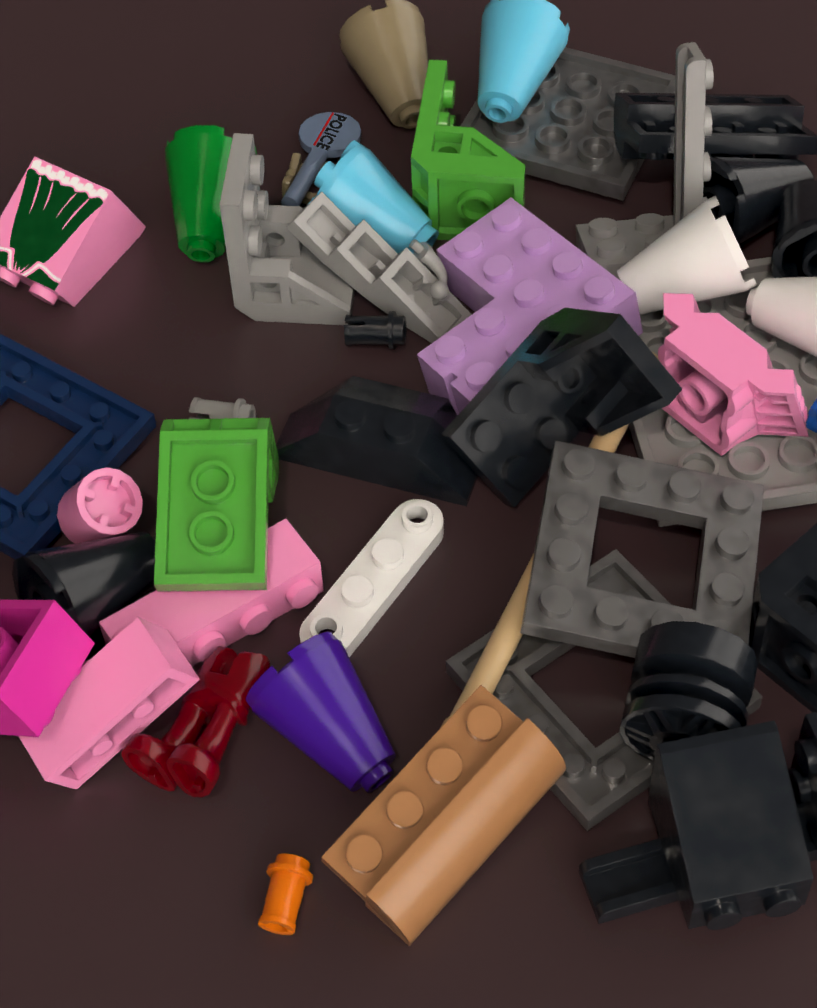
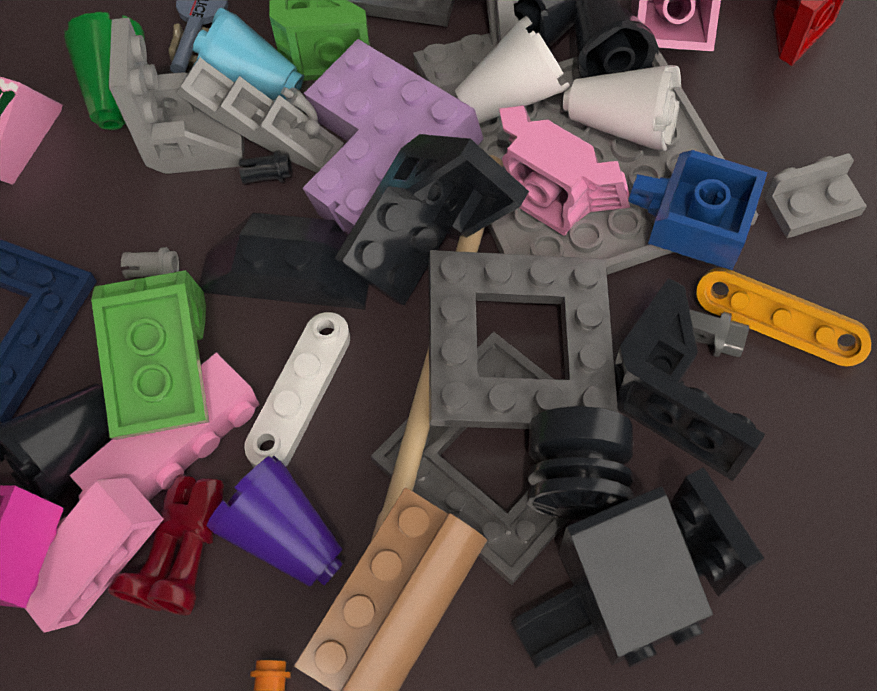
camera: 10 degrees left, 10 degrees up
(100, 506) = (56, 368): bright pink piece -> none

